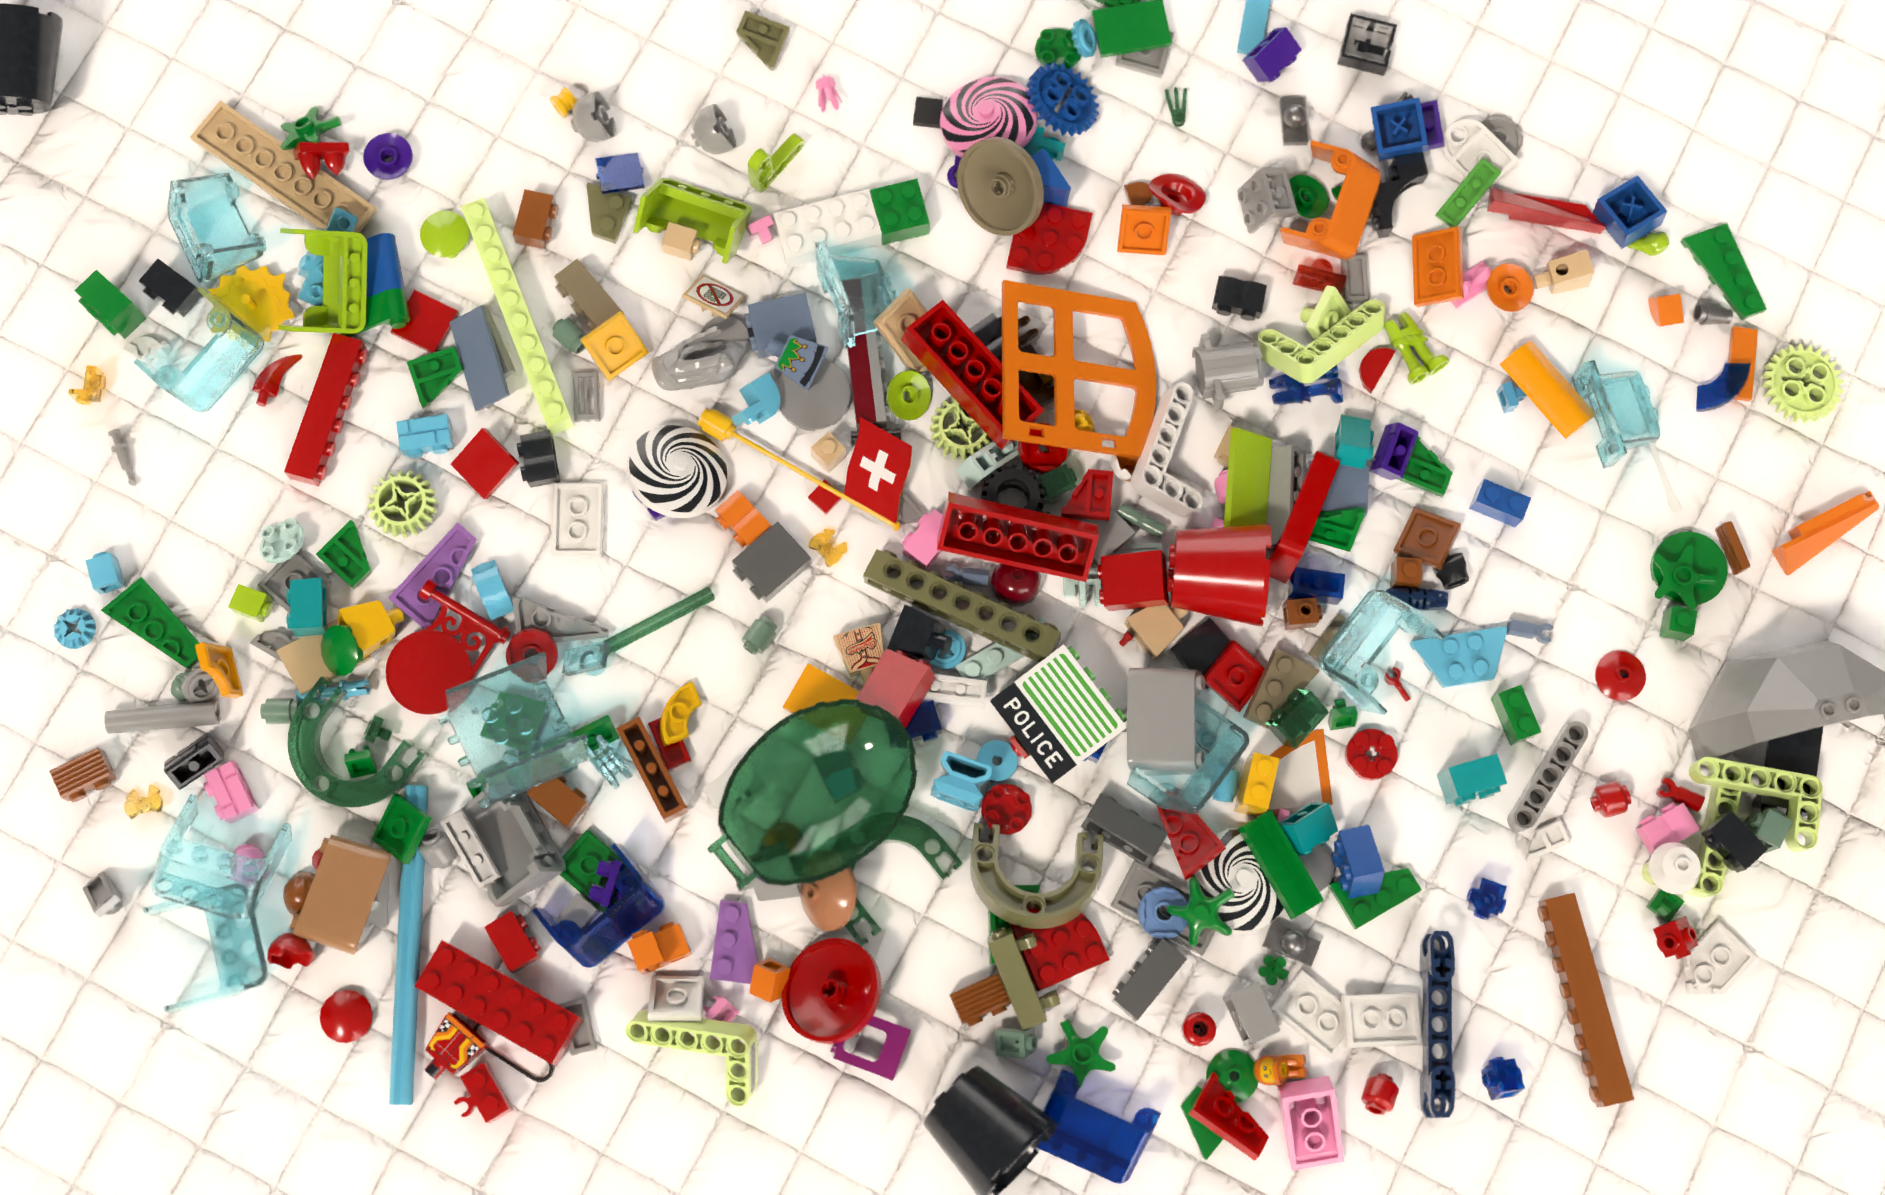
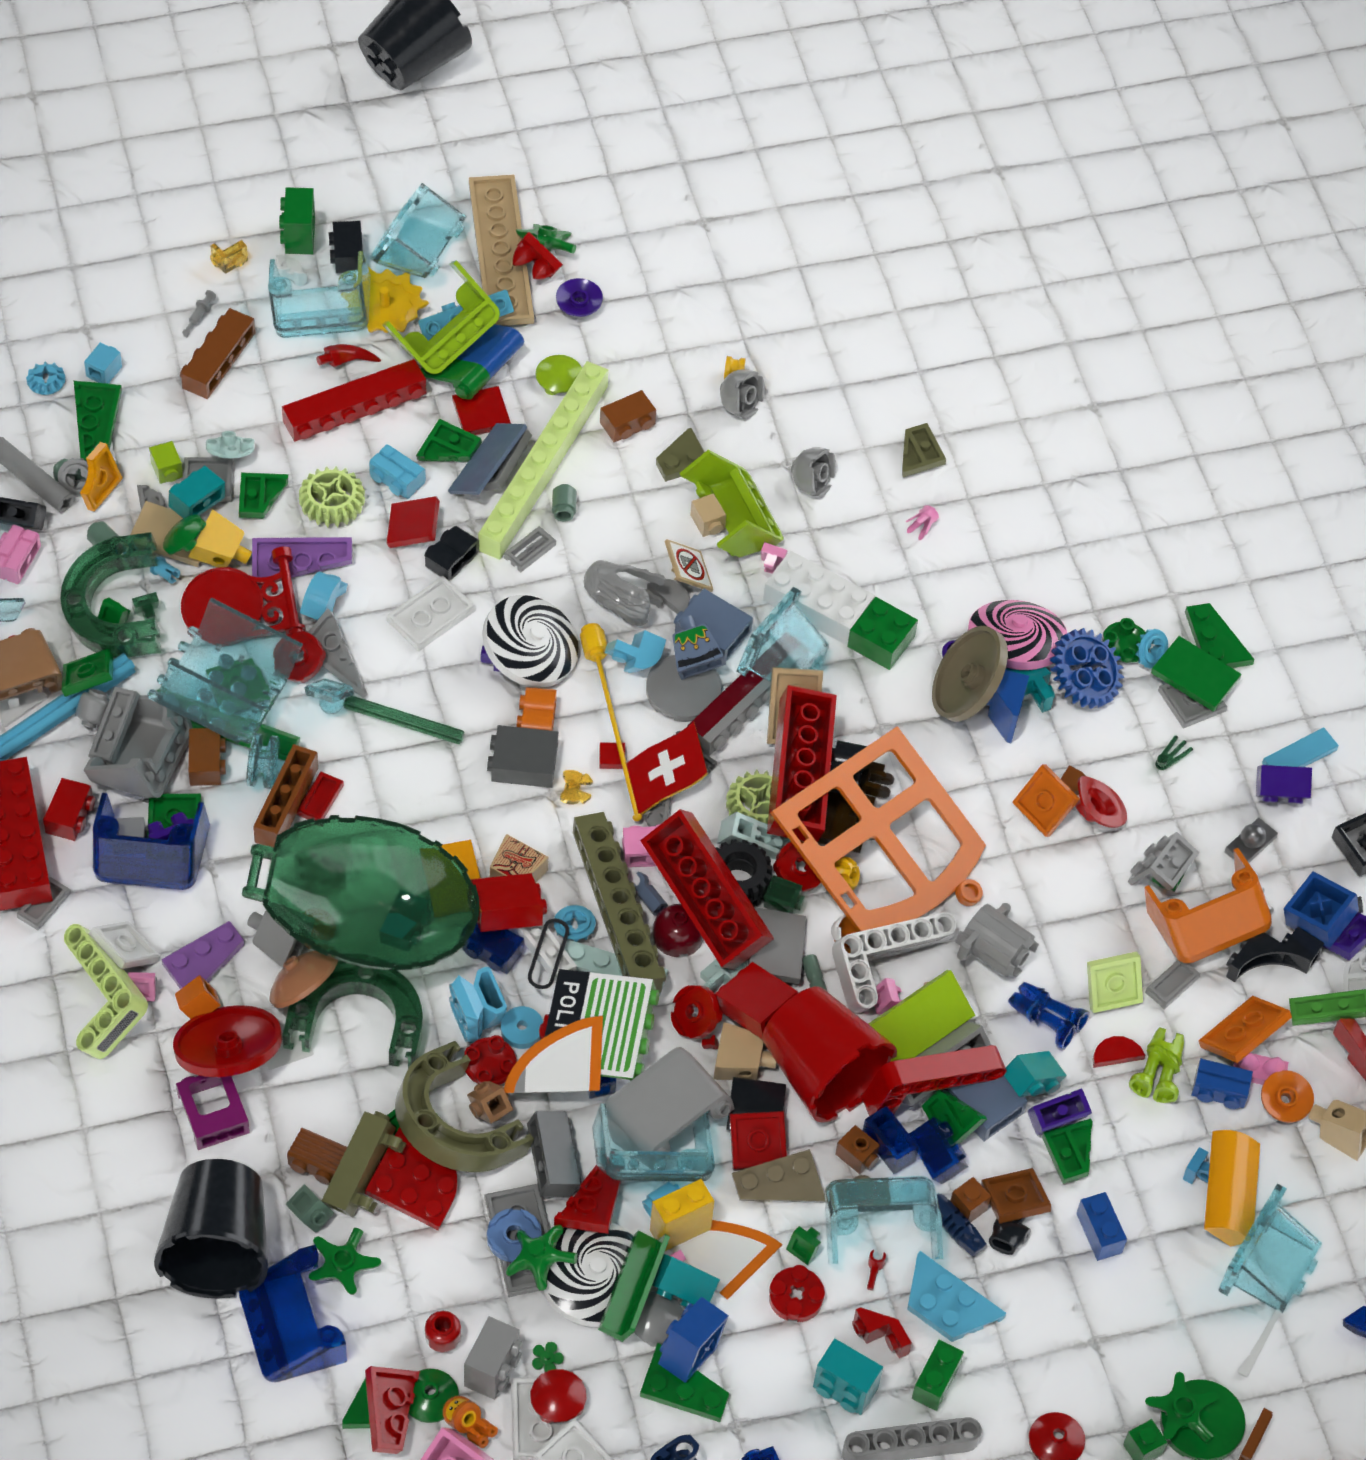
camera: 50 degrees right, 20 degrees down
(179, 475) = (217, 353): none -> dark orange brick
(585, 294) = (603, 493): dark tan brick -> none
(614, 346) = (584, 532): yellow tile -> none
(619, 173) = (719, 440): clear blue piece -> none
(659, 948) = (148, 905): orange brick -> none
(677, 712) = (346, 783): yellow tile -> none
(759, 635) = (460, 791): sand green brick -> none
(765, 168) = (819, 529): lime beam -> none
(828, 452) = (647, 727): tan brick -> none
(917, 395) = (759, 746): lime dish -> none
(919, 635) = (565, 891): black torso -> none
(927, 112) = (980, 594): black piece -> none
(971, 689) = (538, 950): none -> black piece
(1039, 838) = (489, 1102): none -> medium nougat brick
(1050, 241) = (971, 748): red plate -> none
(1064, 763) = (561, 1061): none -> sticker
(1092, 497) = (796, 926): red wing -> none
(1103, 617) = (708, 1011): none -> red plate
(1147, 979) = (449, 1266): dark grey brick -> none
(1164, 350) = (969, 892): none -> orange tile
(1200, 482) = (887, 995): none -> bright pink tile
(1239, 298) = (1066, 910): black brick -> none
(1291, 944) = (581, 1353): flat silver tile -> none
(1296, 717) = (768, 1209): clear green brick -> none
(1309, 196) = (1197, 884): green dish -> none
(1315, 990) = (558, 1396): none -> red dish
(1318, 276) = (1150, 951): clear red tile -> none
(1327, 350) = (1095, 997): yellowish green beam -> none
(1352, 559) = (938, 1150): none -> clear blue brick
(1442, 726) = (876, 1325): none -> red slope
(1462, 321) = (1221, 1084): none -> blue brick
(1528, 630) = (1020, 1333): sand blue bar -> none

